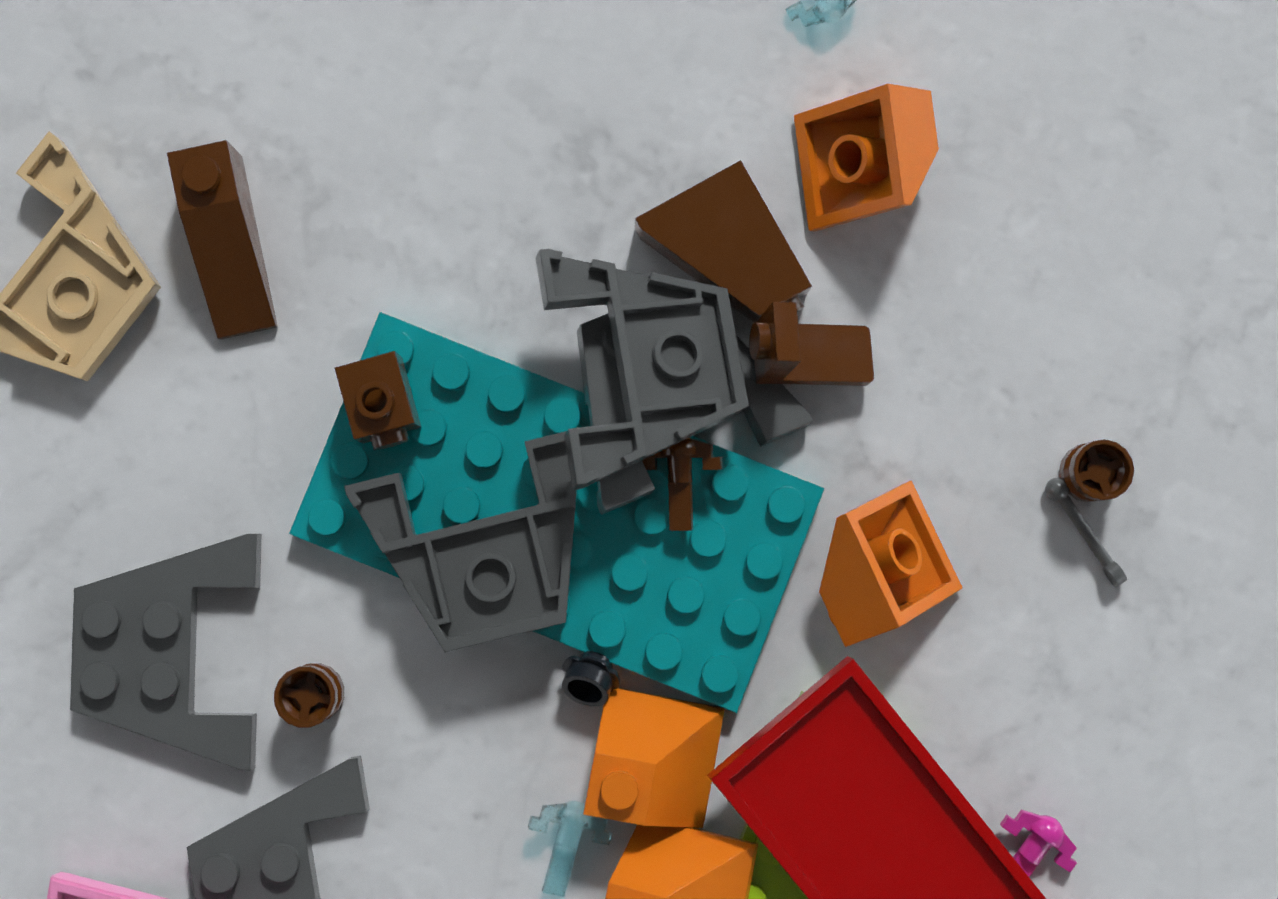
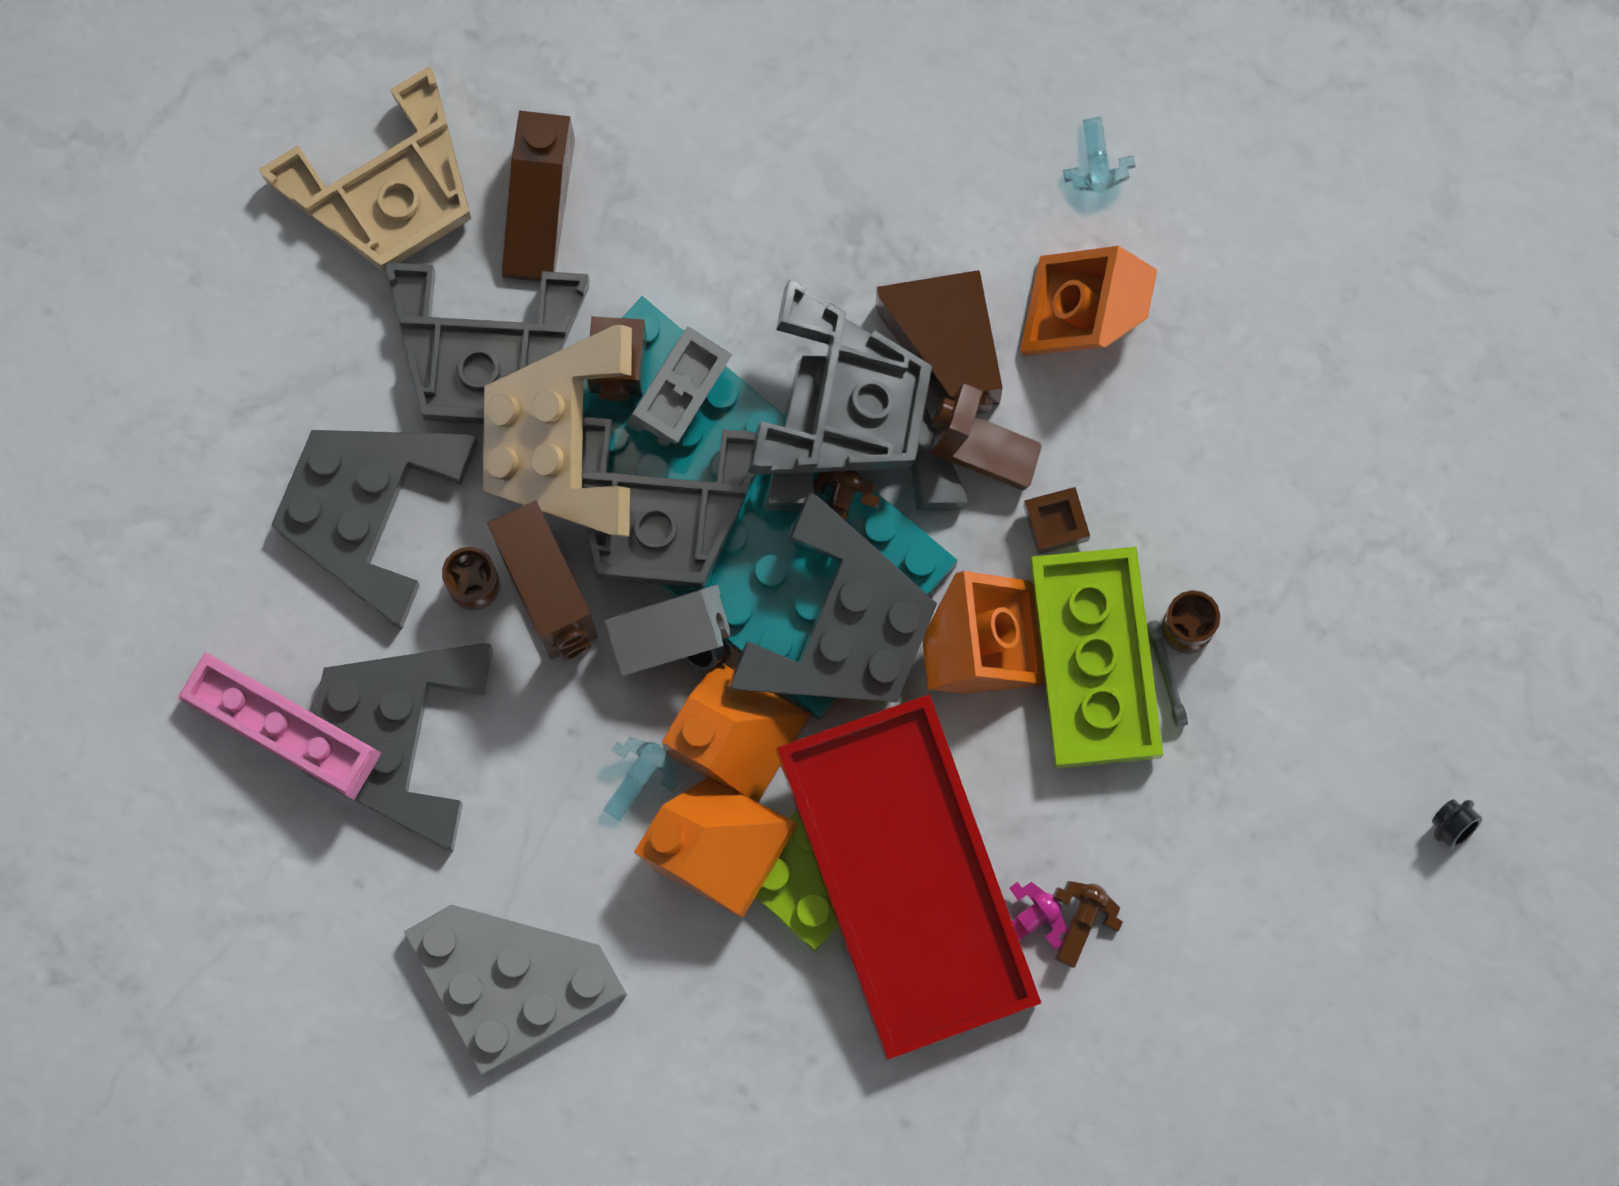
camera: 25 degrees right, 10 degrees down
(231, 453) = (460, 356): none -> dark grey wing
(325, 522) = (538, 433): none -> tan wing
(389, 680) = (544, 581): none -> reddish brown window
(460, 410) = (679, 387): none -> light grey hinge
(544, 681) = (668, 630): none -> light grey hinge
(753, 610) = (862, 630): none -> dark grey wing
(915, 408) = (1056, 520): none -> reddish brown plate
(1008, 544) = (1096, 657): none -> lime plate
(1090, 805) = (1092, 900): none -> reddish brown piece

